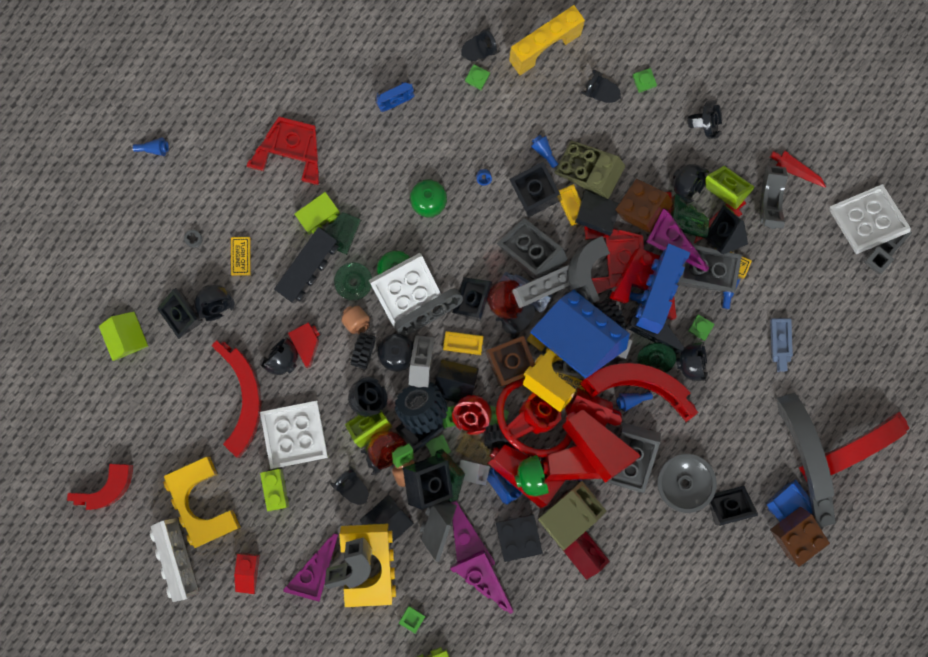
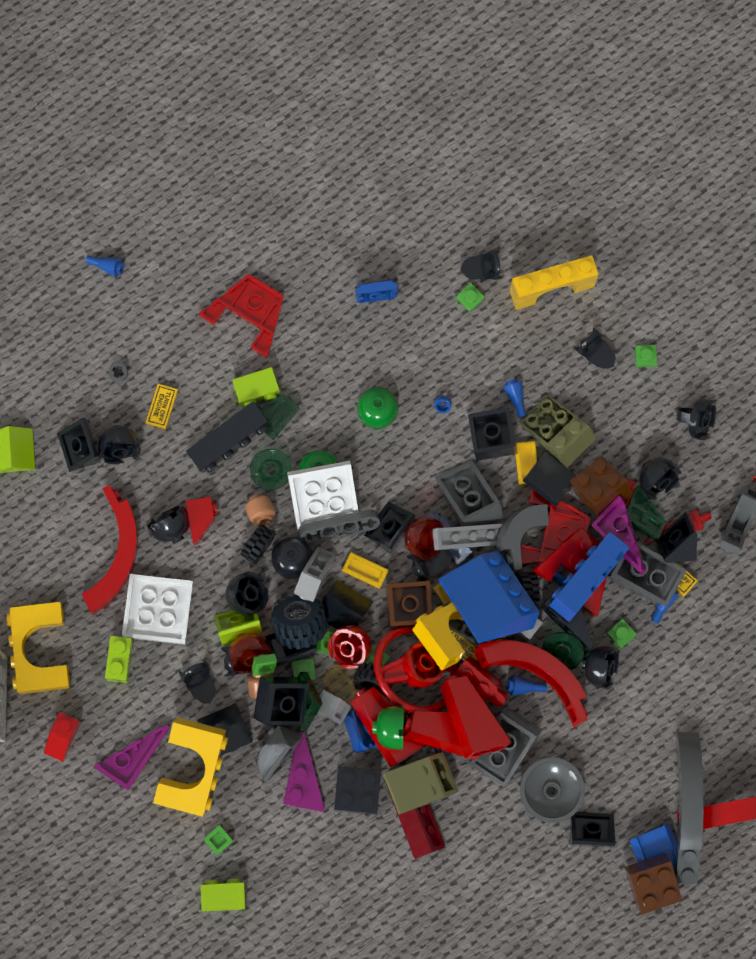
camera: 15 degrees right, 5 degrees down
(356, 570) = (174, 769): dark grey arch -> none
(480, 573) = (305, 815): magenta wing -> none
(728, 186) = (698, 494): lime slope -> none
(781, 342) = (701, 676): sand blue hinge -> none

